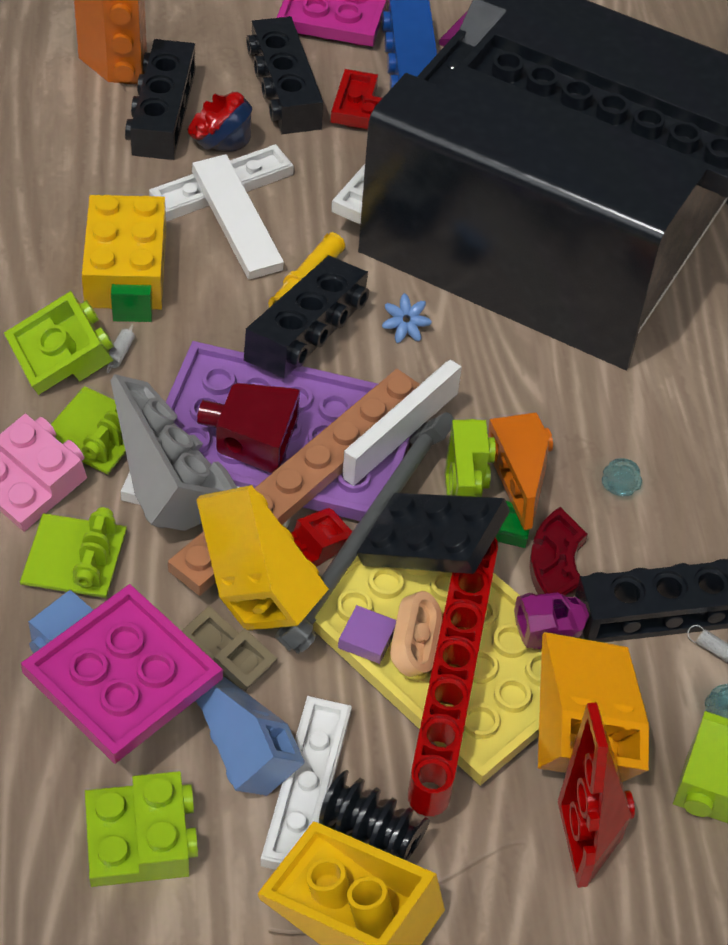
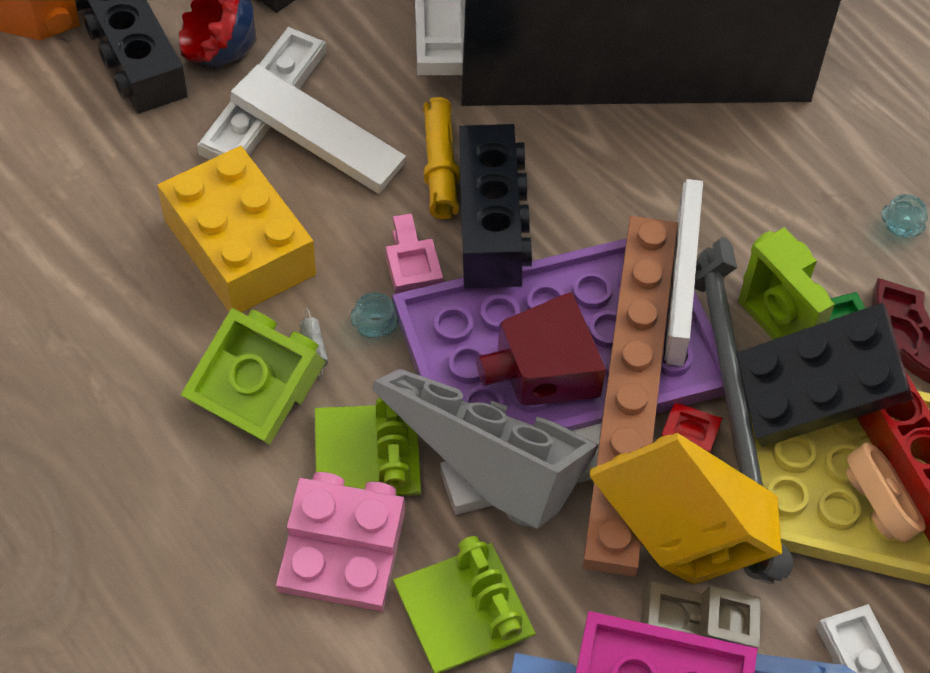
camera: 30 degrees left, 5 degrees up
(131, 303) = (291, 285): green tile -> none
(172, 349) = (374, 305): none -> clear light blue plate
(228, 327) = (411, 261): none -> bright pink plate
(367, 634) = (835, 520): medium lavender tile -> none
(411, 313) = (582, 152): medium blue plant -> none
(521, 460) = (839, 263): orange slope -> none

